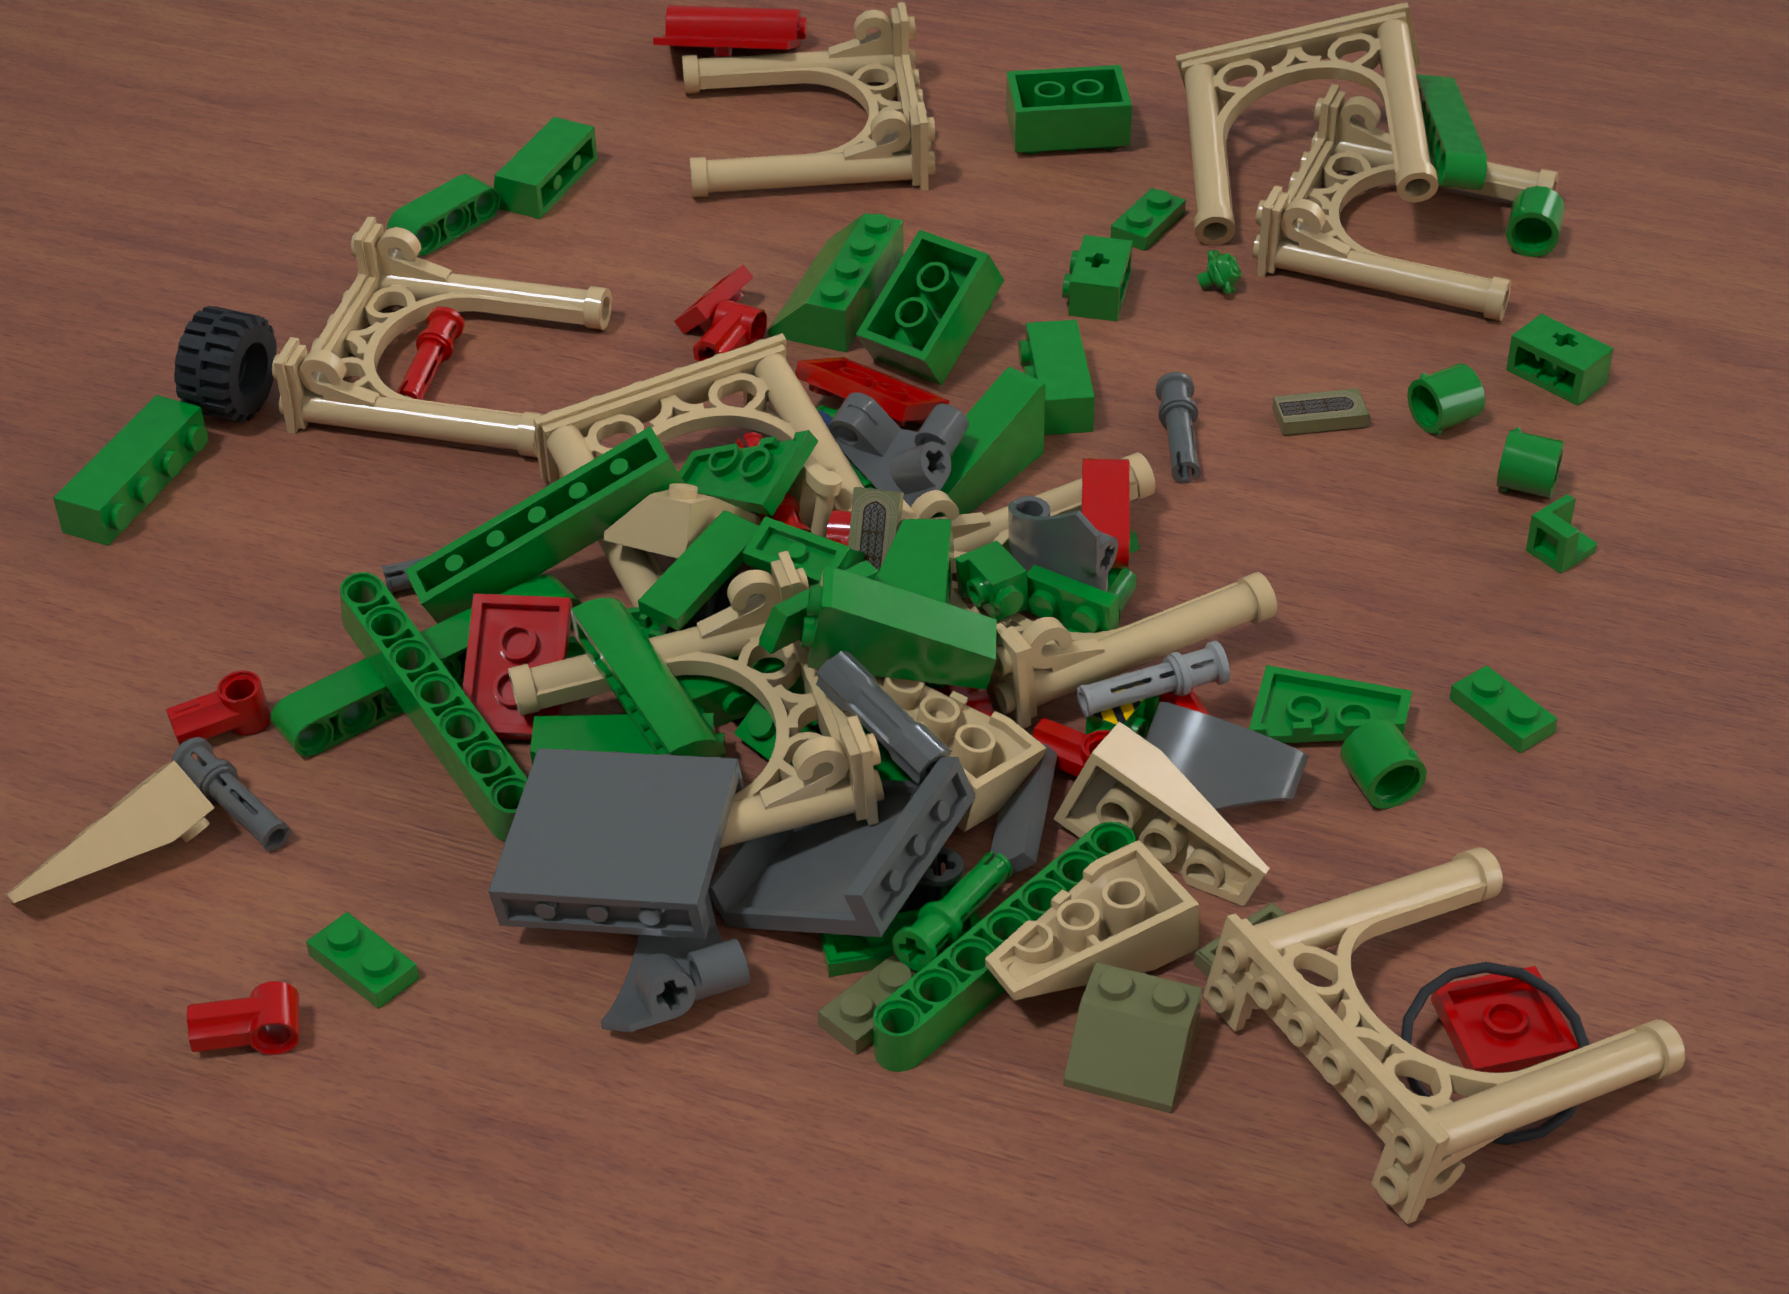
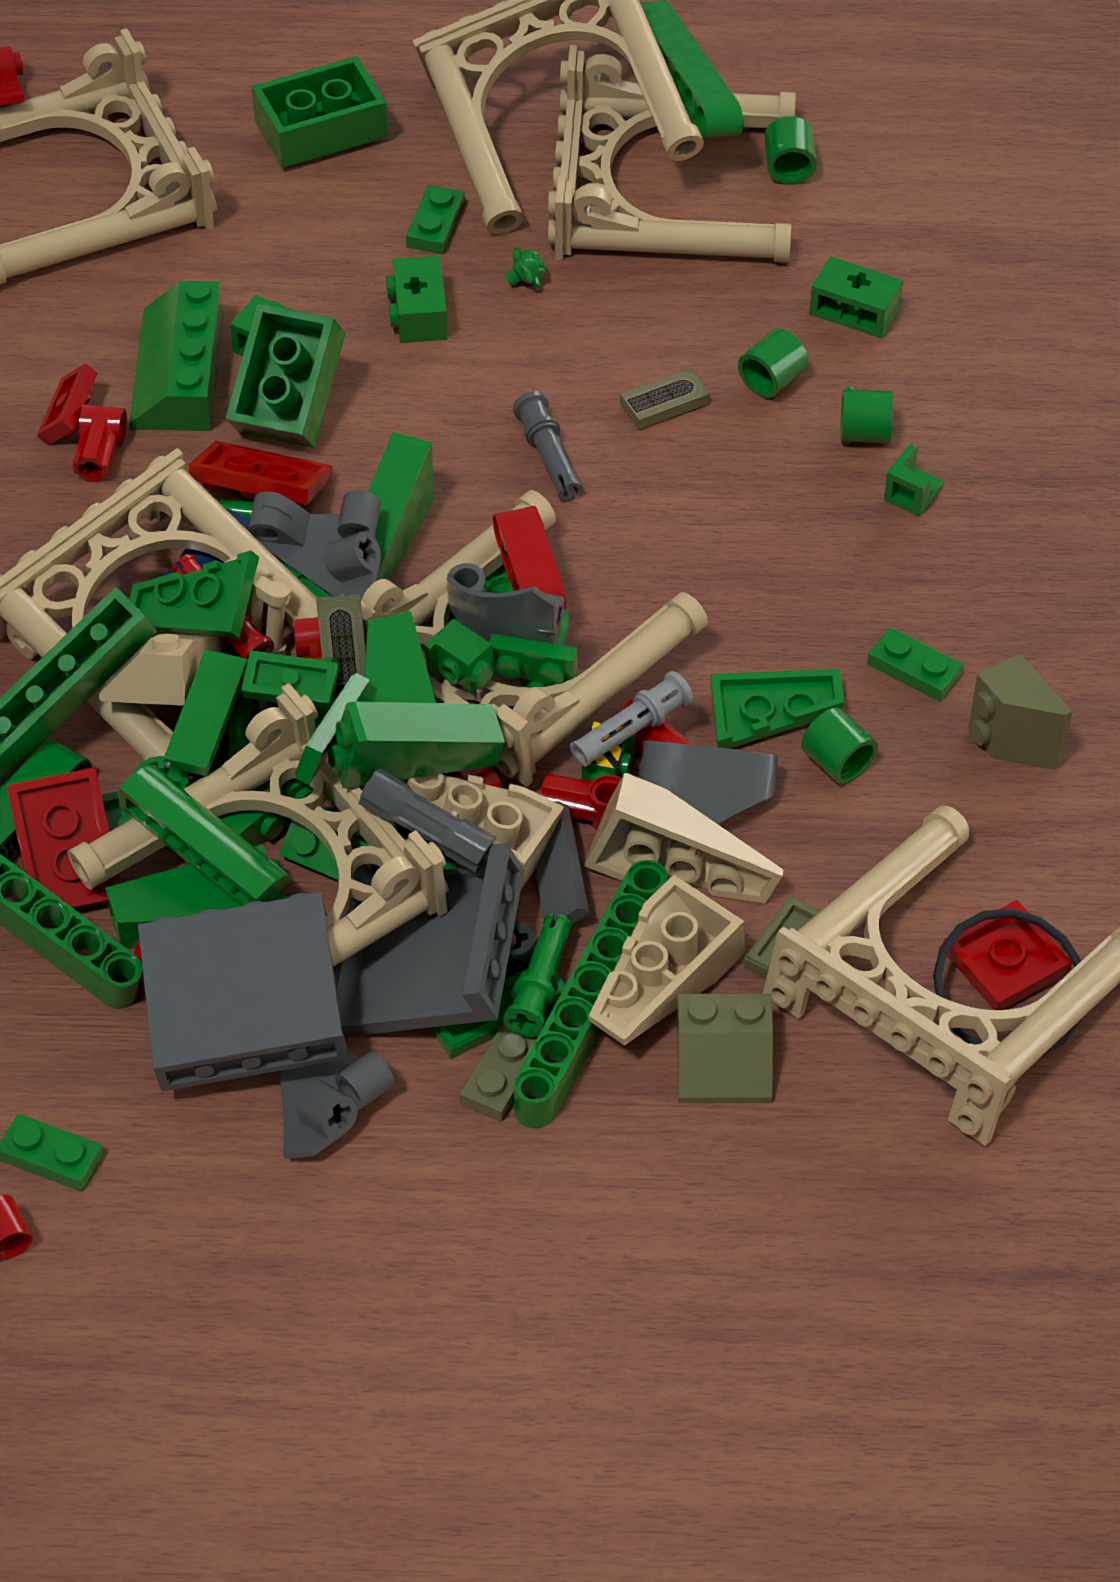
camera: 20 degrees left, 10 degrees up
(1057, 358) = (422, 411): green brick -> none
(1599, 776) = (1019, 715): none -> olive slope

